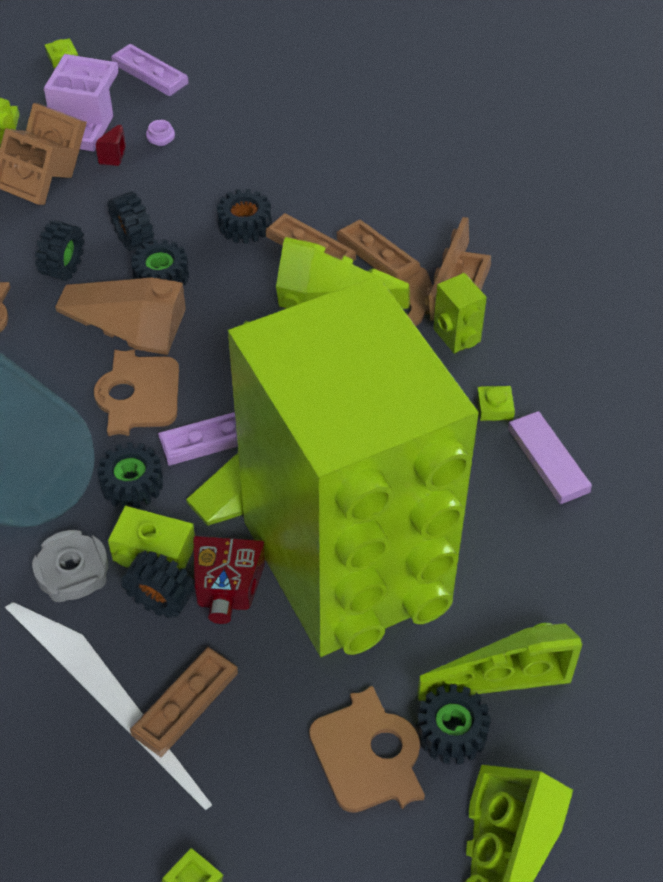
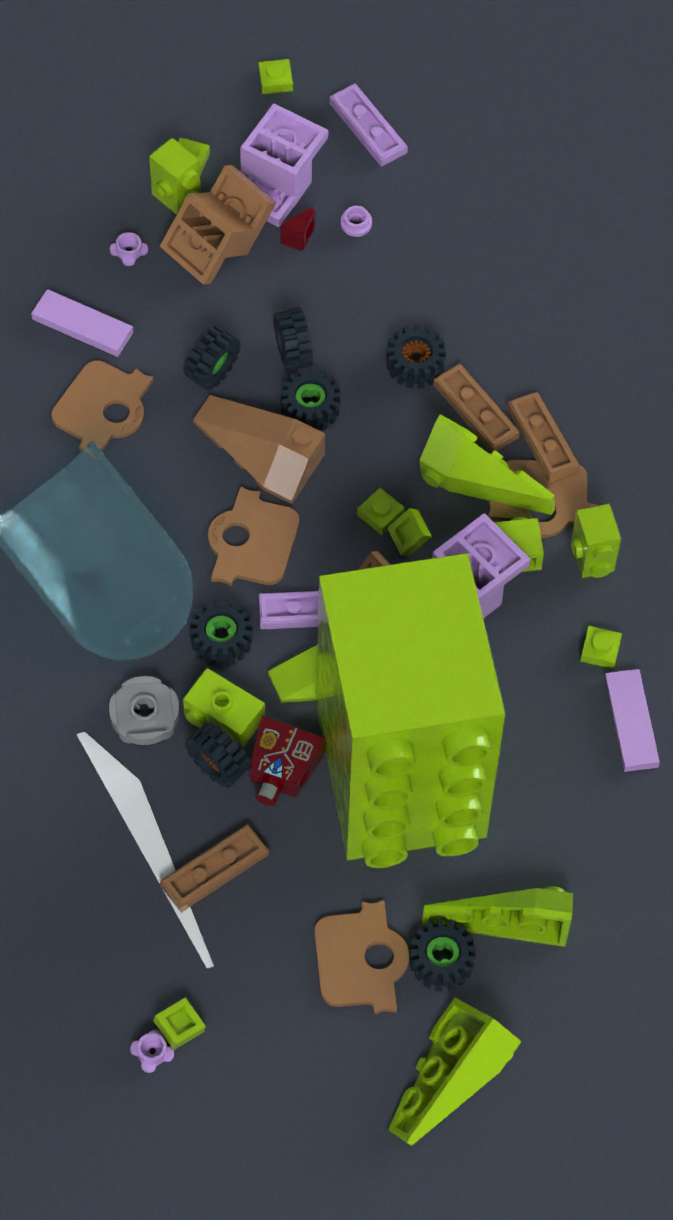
camera: 15 degrees right, 10 degrees up
(457, 261) = (621, 483): medium nougat bracket -> none

